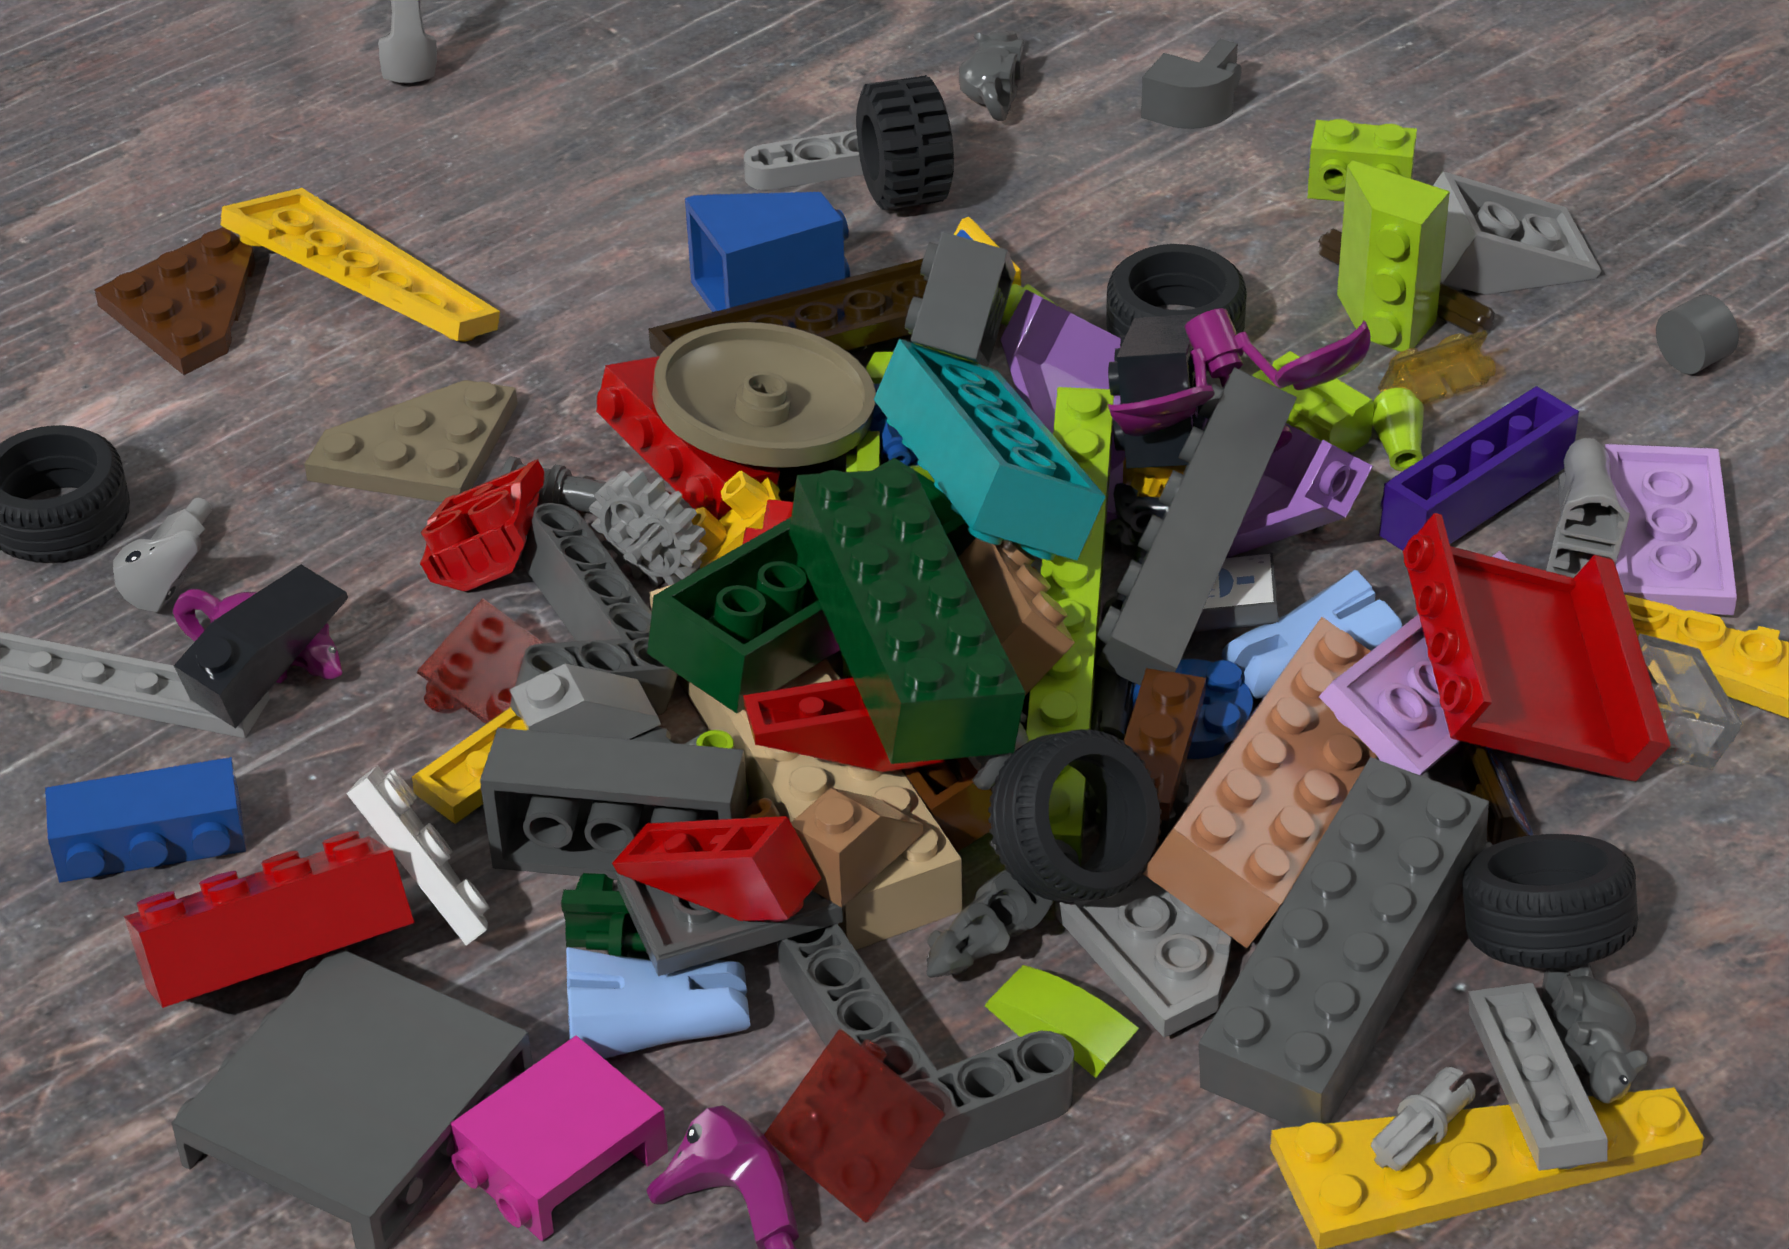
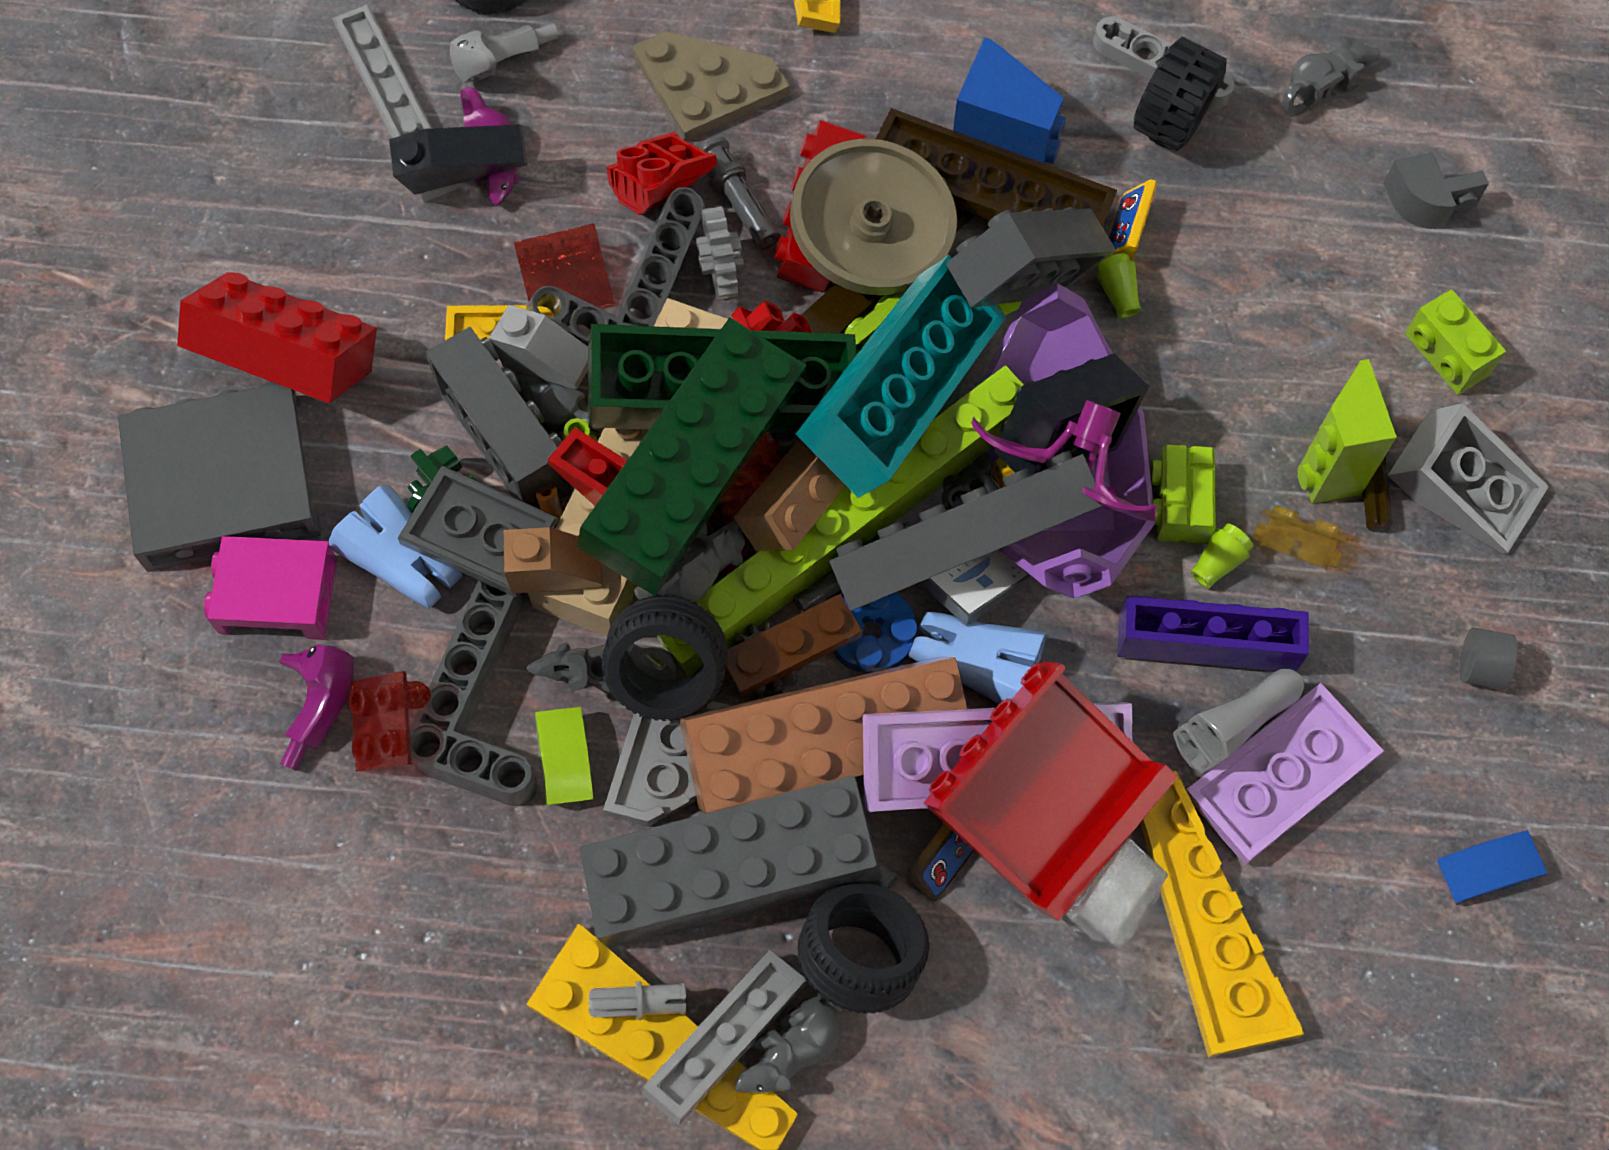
camera: 45 degrees right, 25 degrees up
(144, 819) = (312, 217): blue brick -> none
(420, 849) = (385, 352): white plate -> none
(727, 865) = (469, 517): red slope -> none
(748, 505) = (777, 285): yellow hips -> none
(1173, 277) = (1208, 316): black tyre -> none

